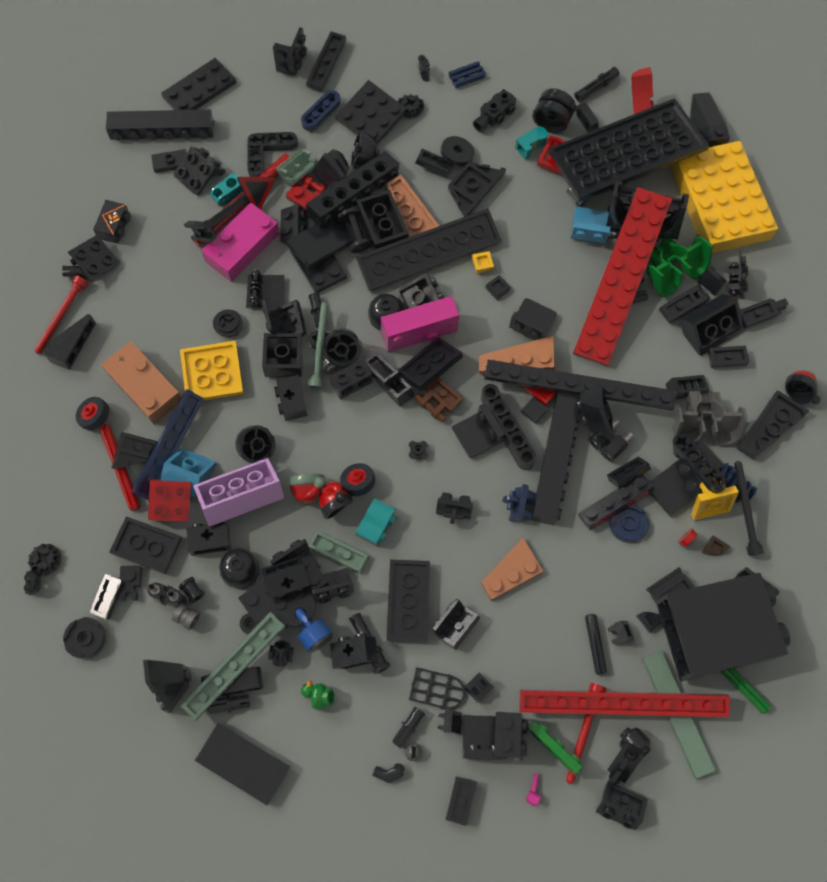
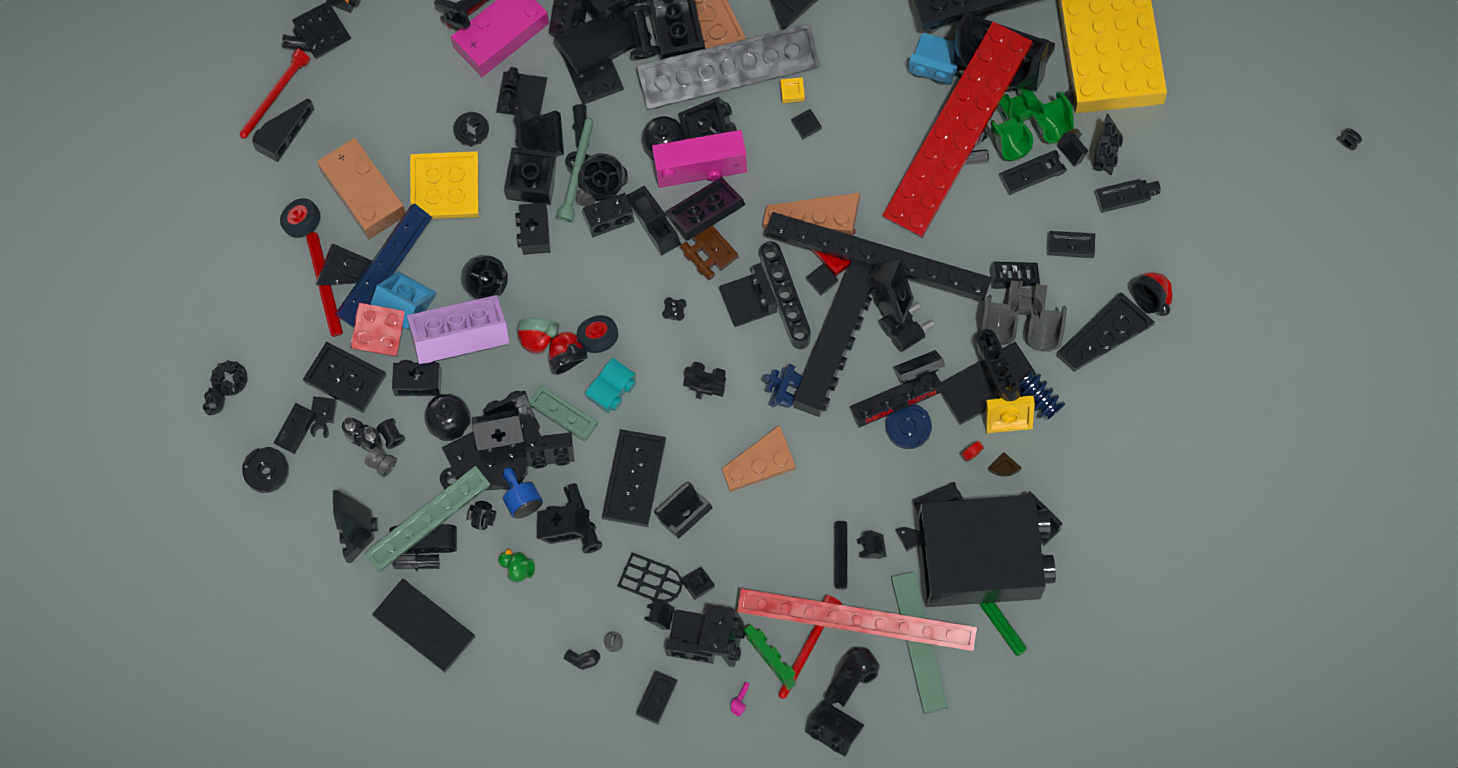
camera: 15 degrees right, 0 degrees up
(408, 727) = (611, 614): black axle -> none
(532, 319) = (840, 169): black bracket -> none
(712, 323) = (1061, 201): black slope -> none
(754, 546) = (1049, 469): black piece -> none

